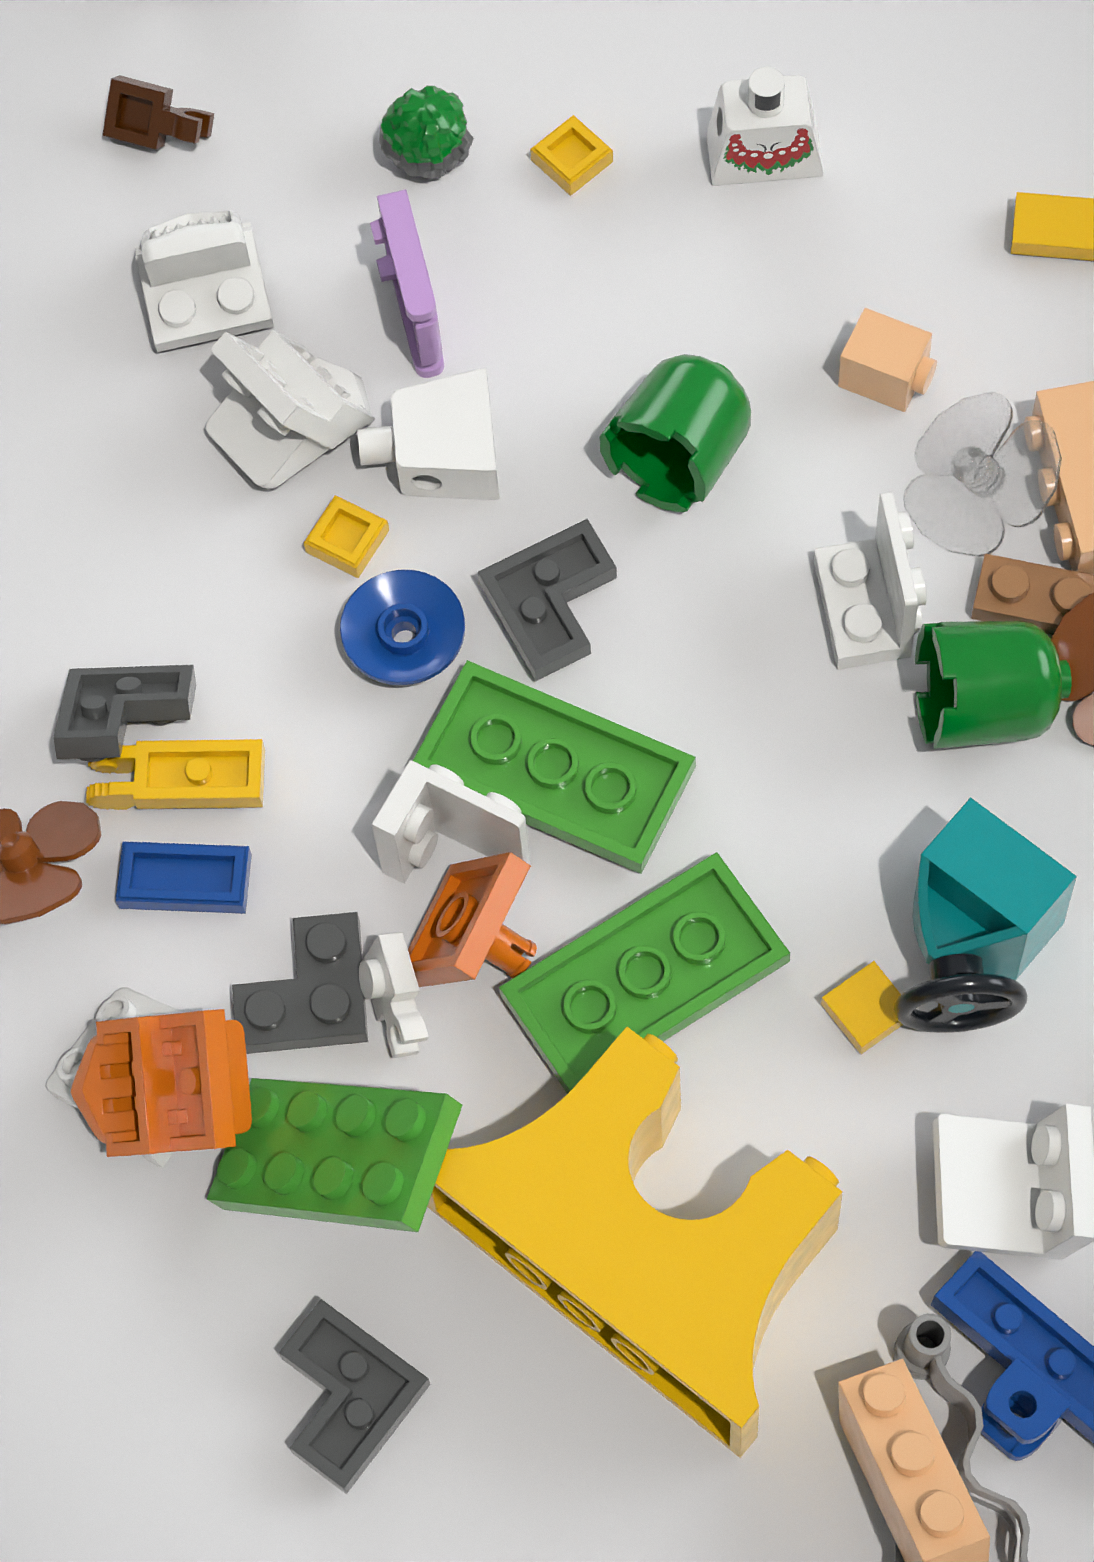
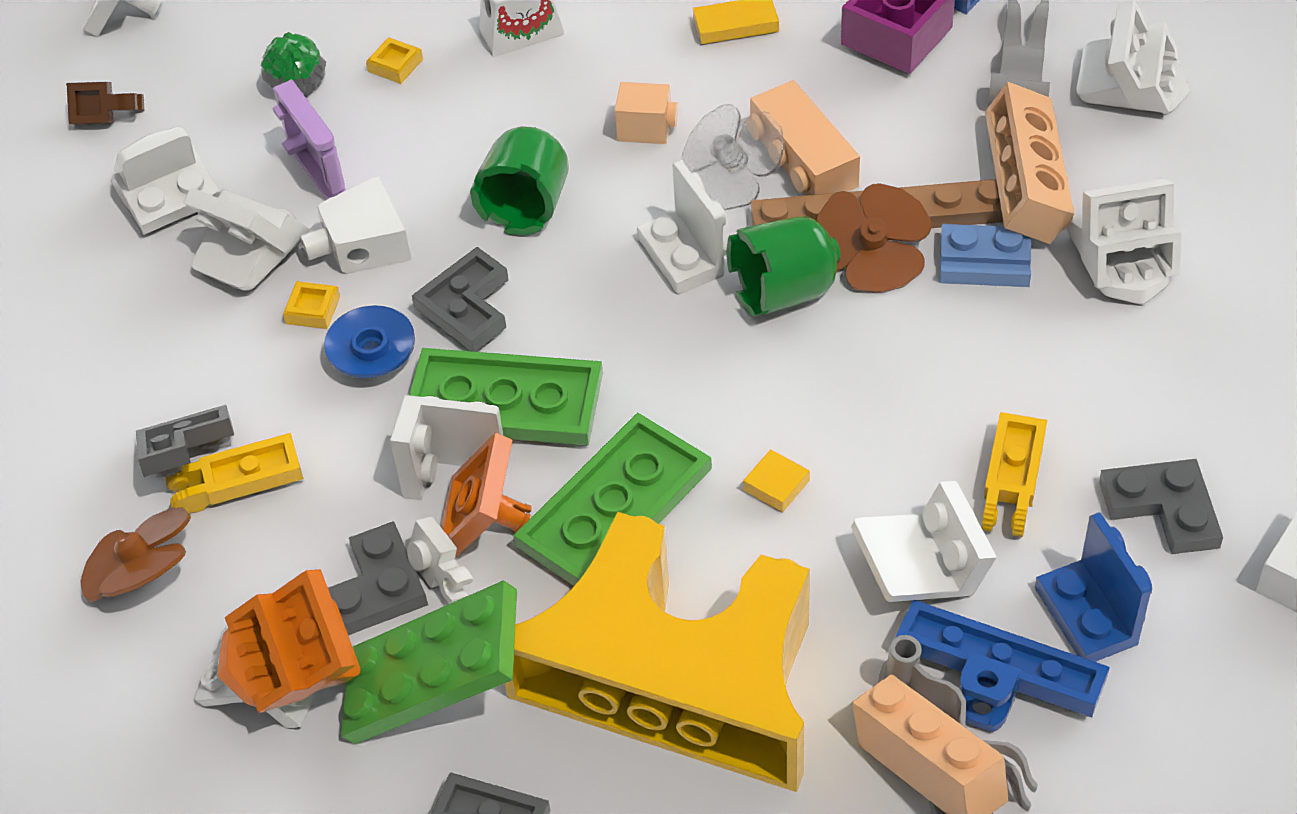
camera: 20 degrees left, 15 degrees down
(183, 877) = (258, 538): blue tile -> none
(980, 919) = (836, 394): teal piece -> none

